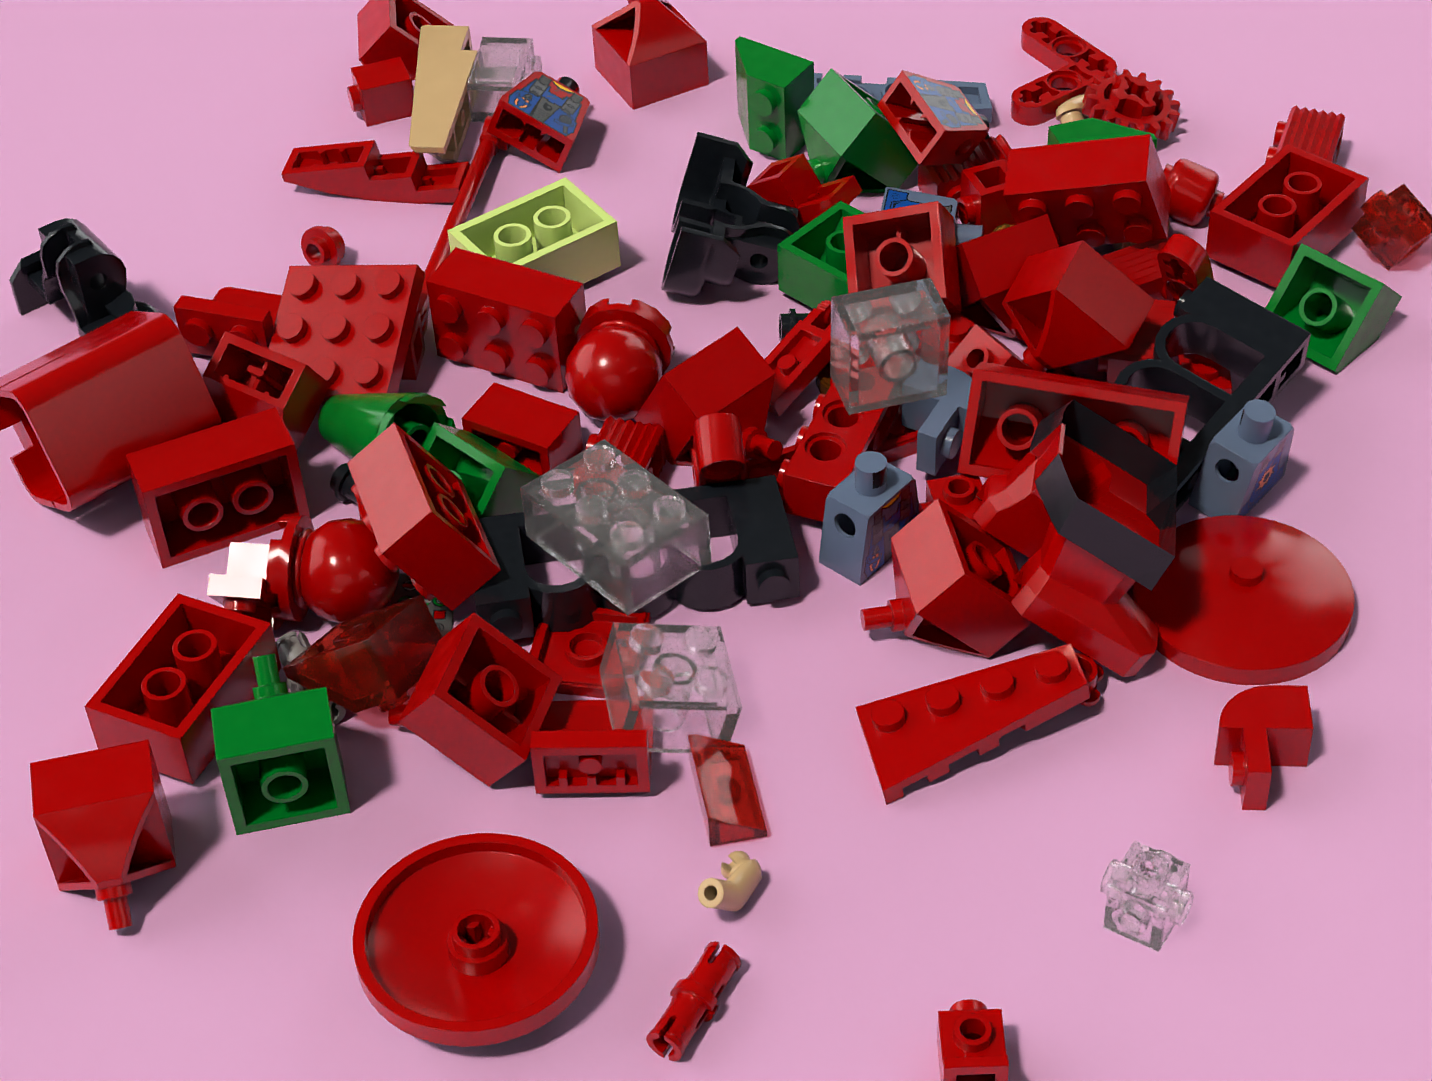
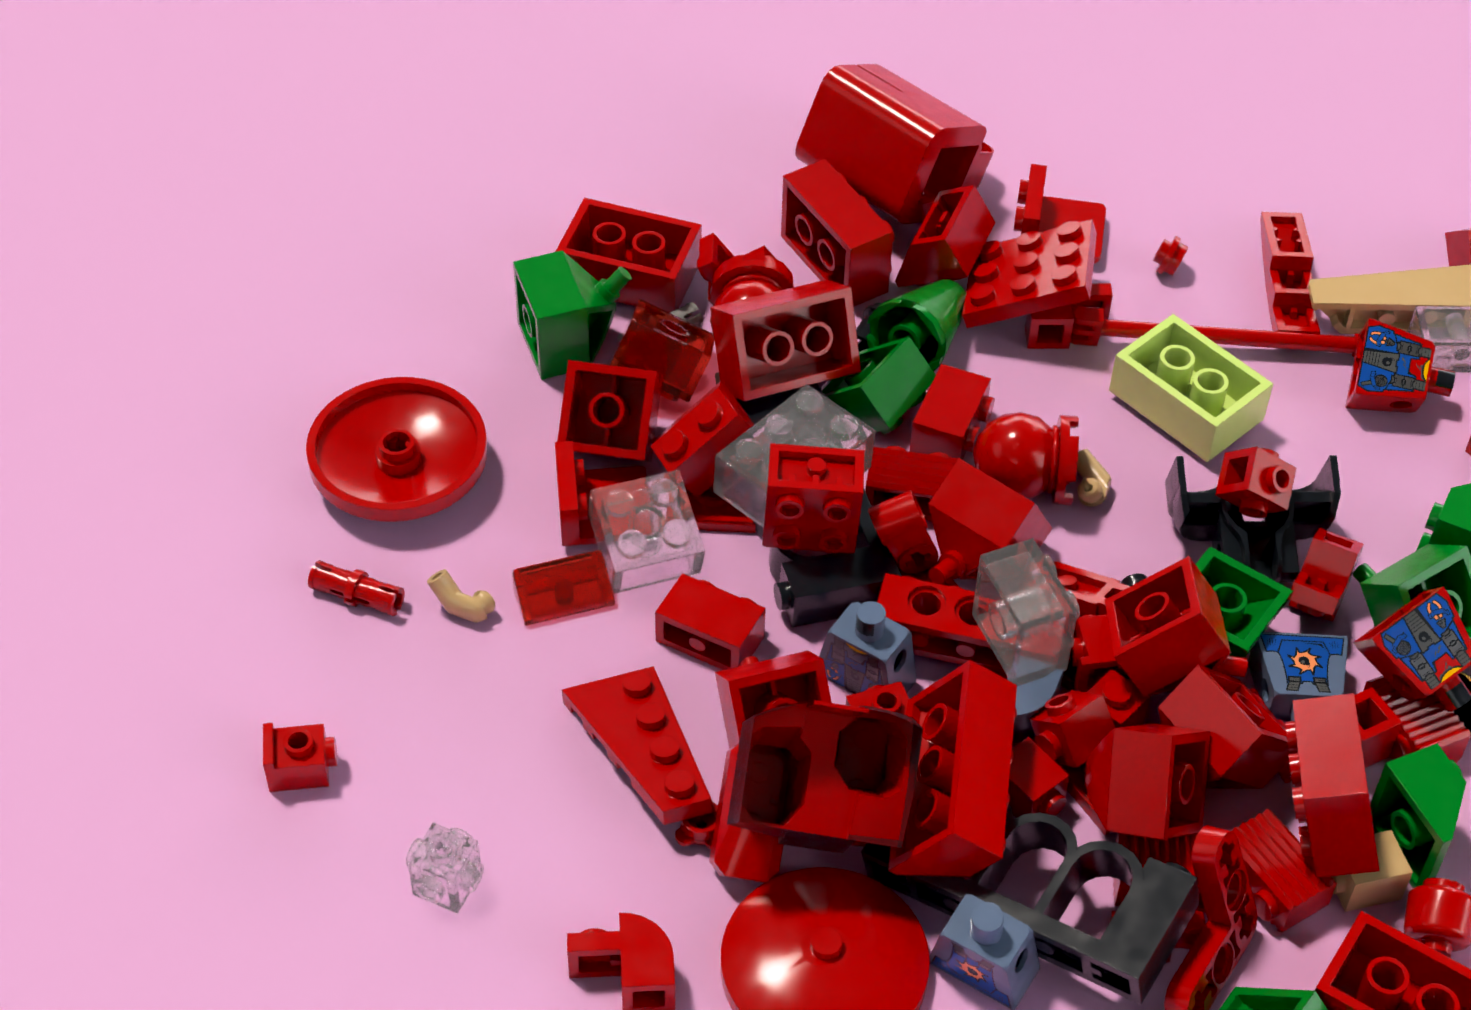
camera: 80 degrees right, 5 degrees up
(77, 268) = (1053, 116): black piece -> none
(103, 822) = (483, 234): red piece -> none
(381, 91) = (1408, 250): red brick -> none
(505, 317) = (1076, 365): red brick -> none
(541, 606) = (699, 435): none -> red slope
(699, 189) = (1256, 481): none -> red brick
(700, 476) = (813, 498): none -> red bracket
(802, 651) = (709, 623): none -> red brick

